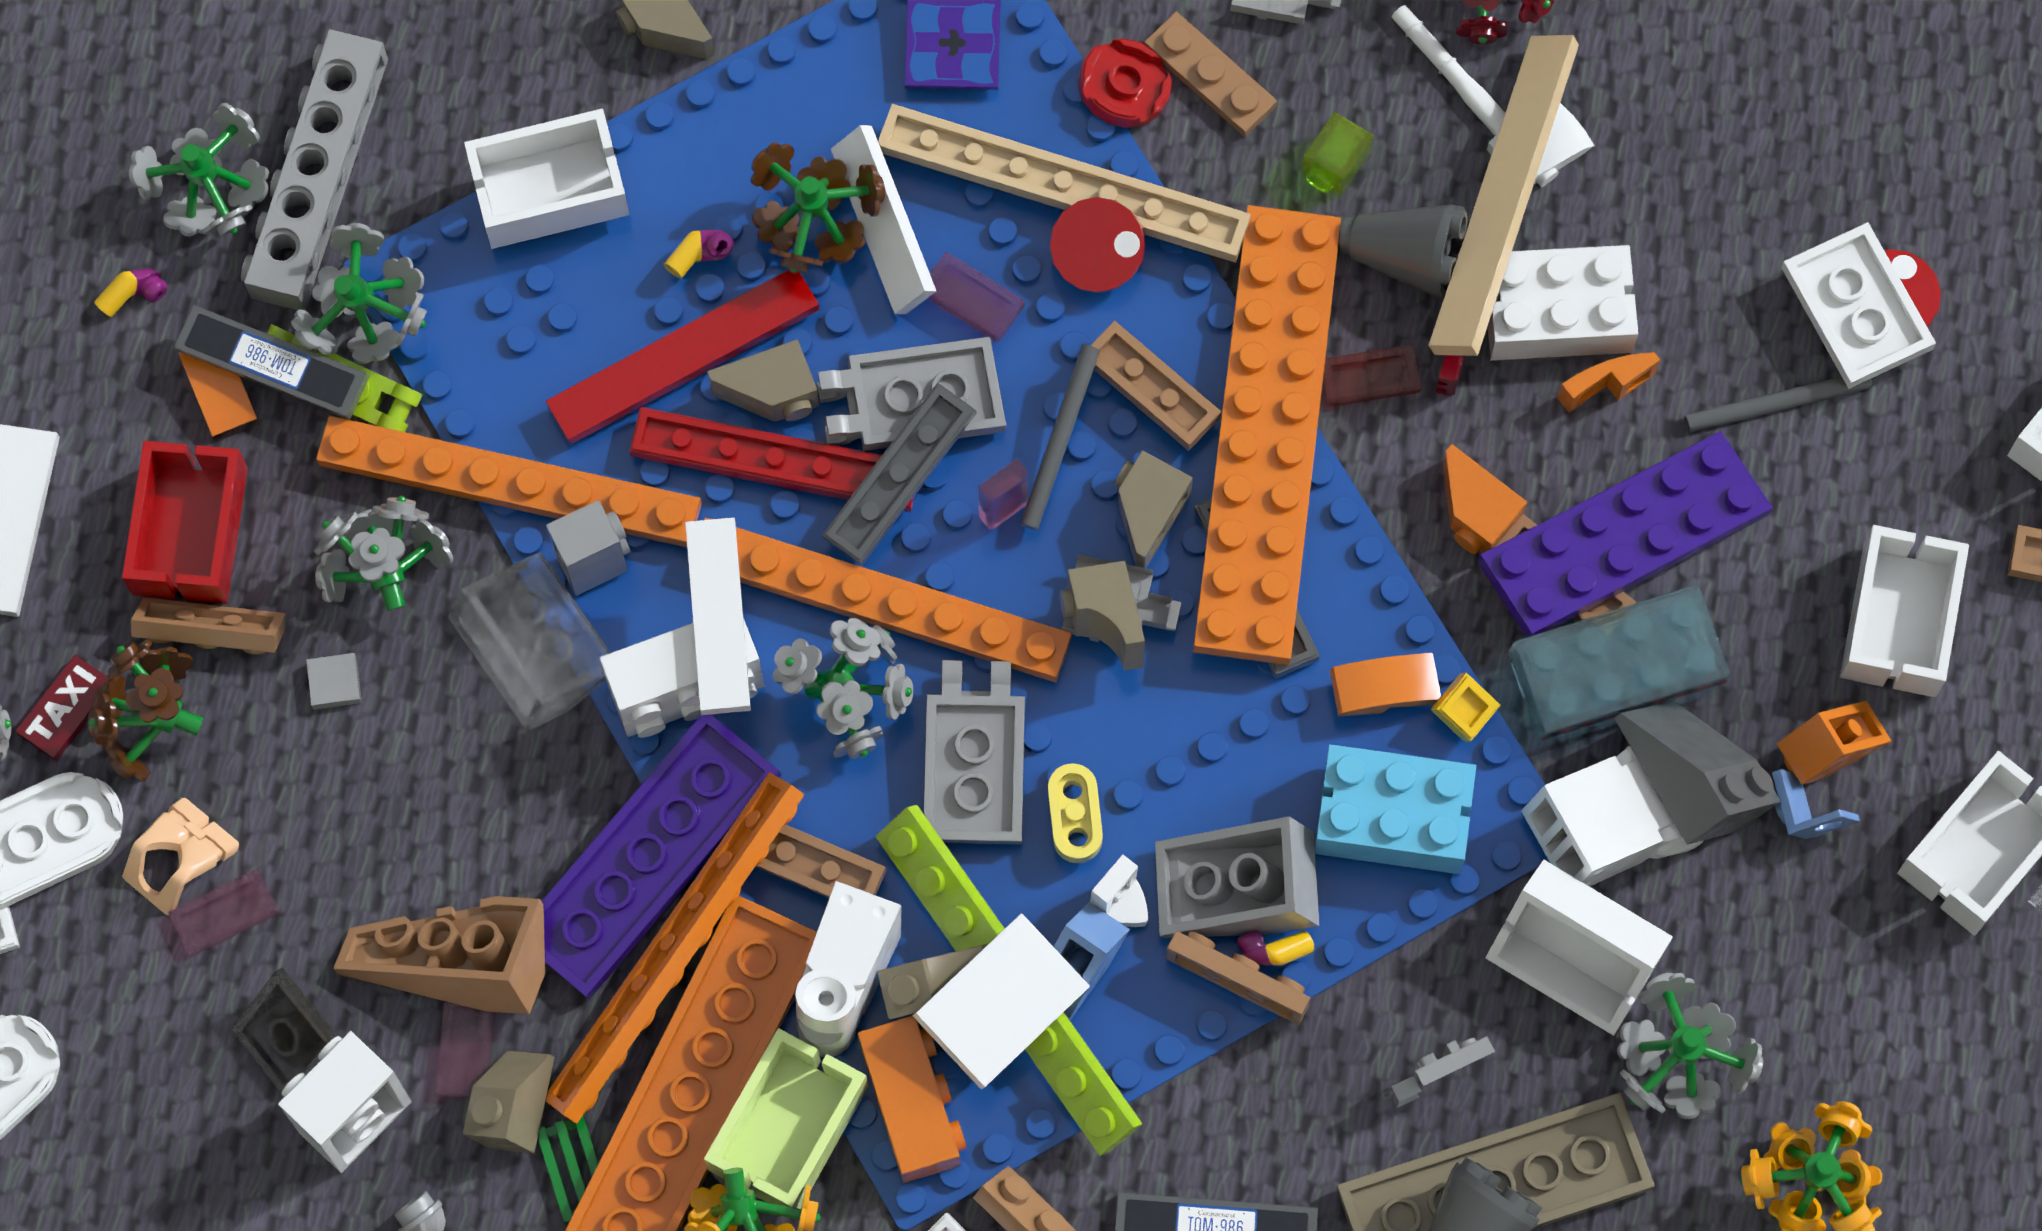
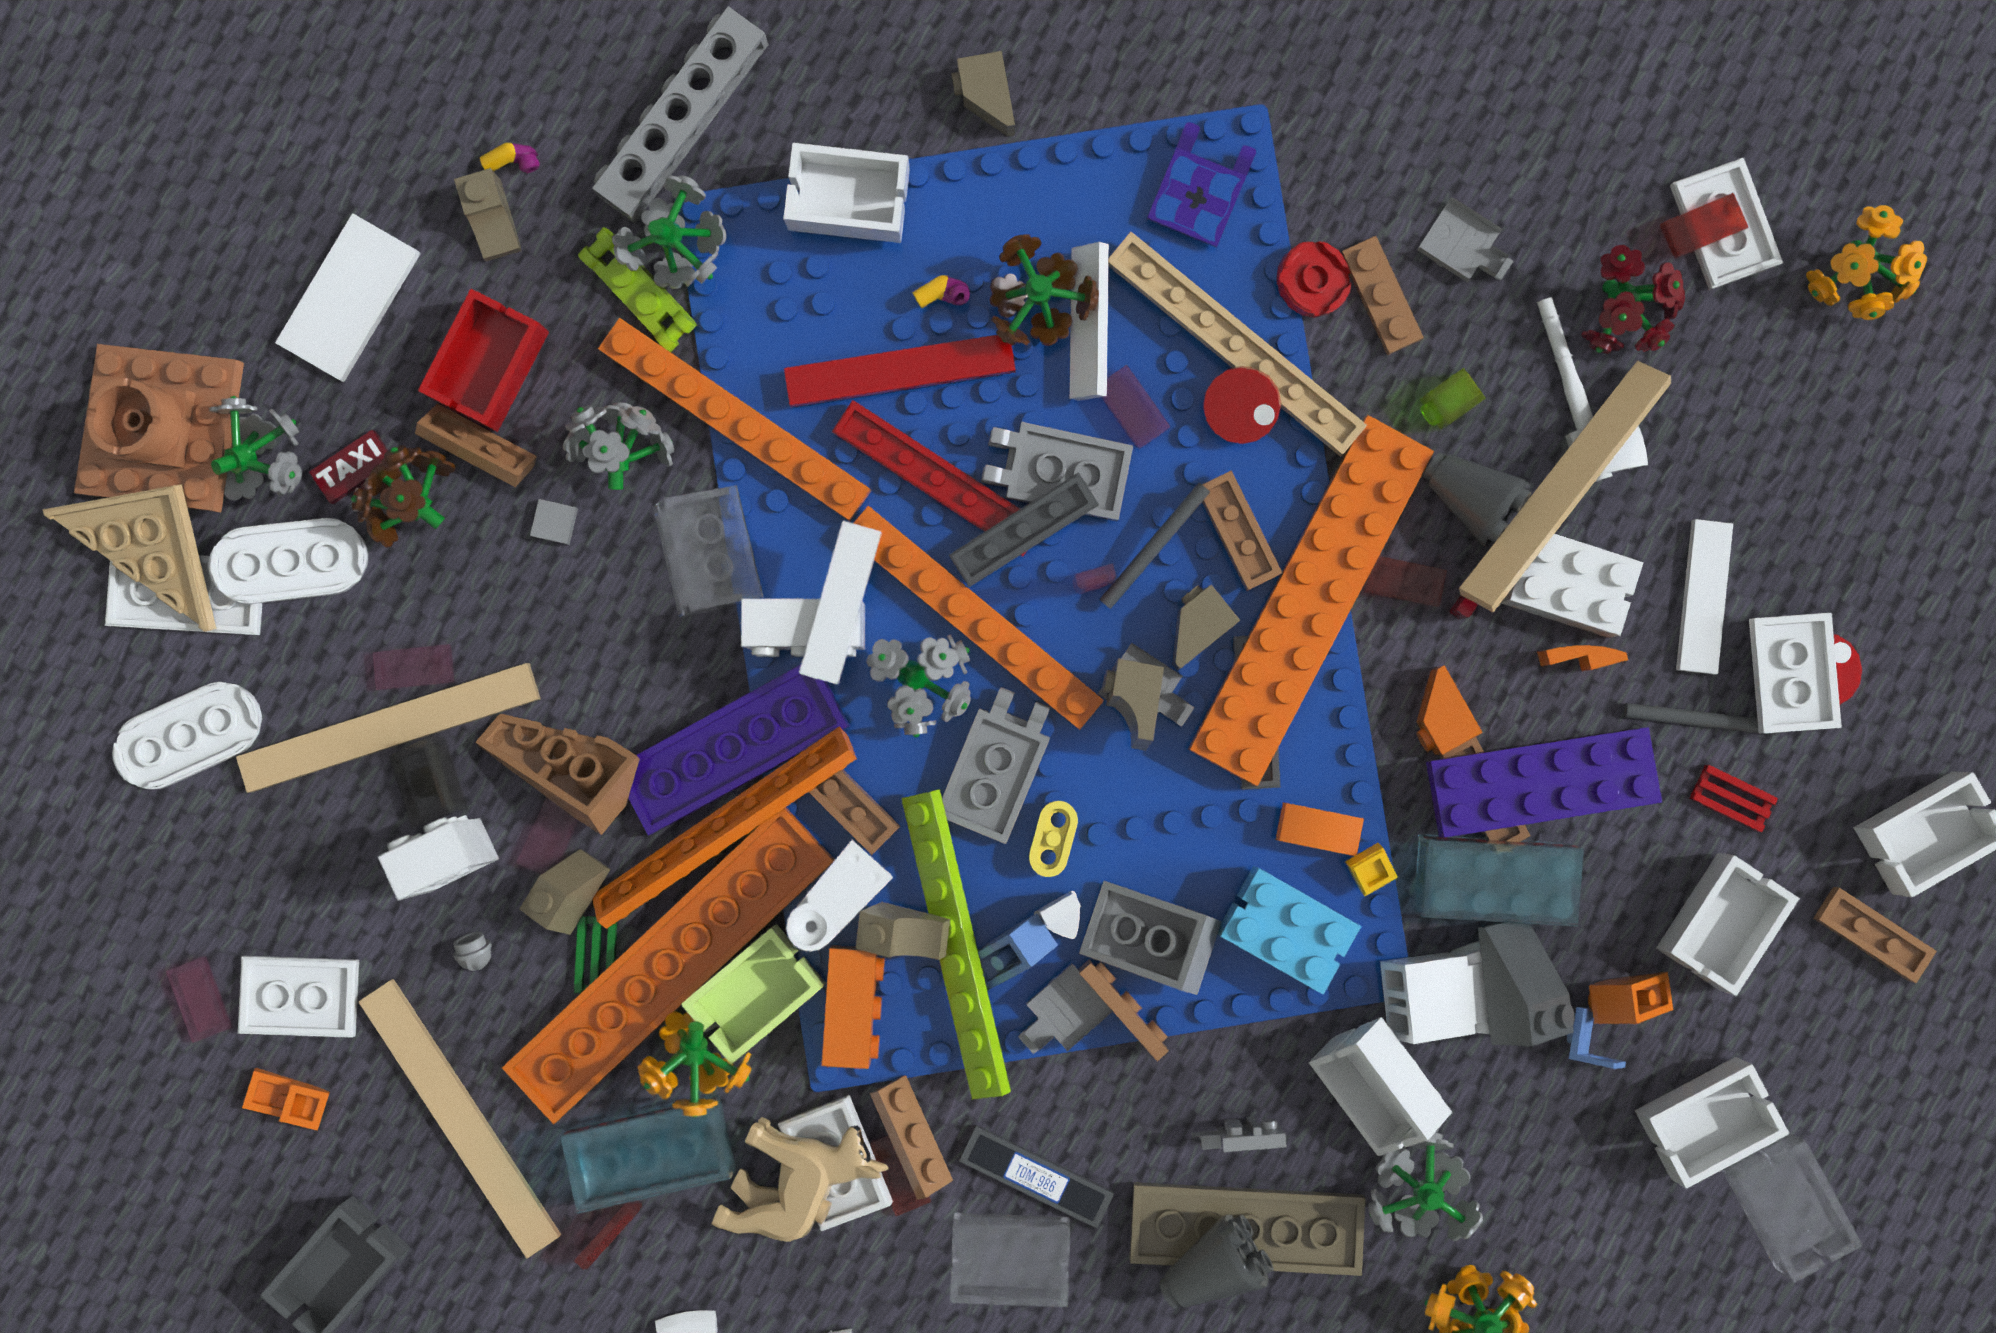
camera: 20 degrees right, 15 degrees up
(128, 360) = (488, 213): none -> dark tan arch
(198, 849) = (409, 604): light nougat piece -> none
(199, 162) = (592, 78): light grey plant -> none
(217, 996) = (388, 728): none -> tan tile
(219, 395) = (548, 257): orange slope -> none
(271, 362) = (590, 259): tile -> none
(589, 546) = (770, 500): light grey brick -> none
(768, 383) = (955, 420): dark tan slope -> none
(1001, 1001) = (941, 971): white tile -> none
(1168, 1009) = (1065, 1010): none -> light grey piece
(1277, 952) = (1156, 1000): yellow arm -> none
(1722, 265) = (1704, 597): none -> white tile
(1893, 460) = (1762, 811): none -> red tile

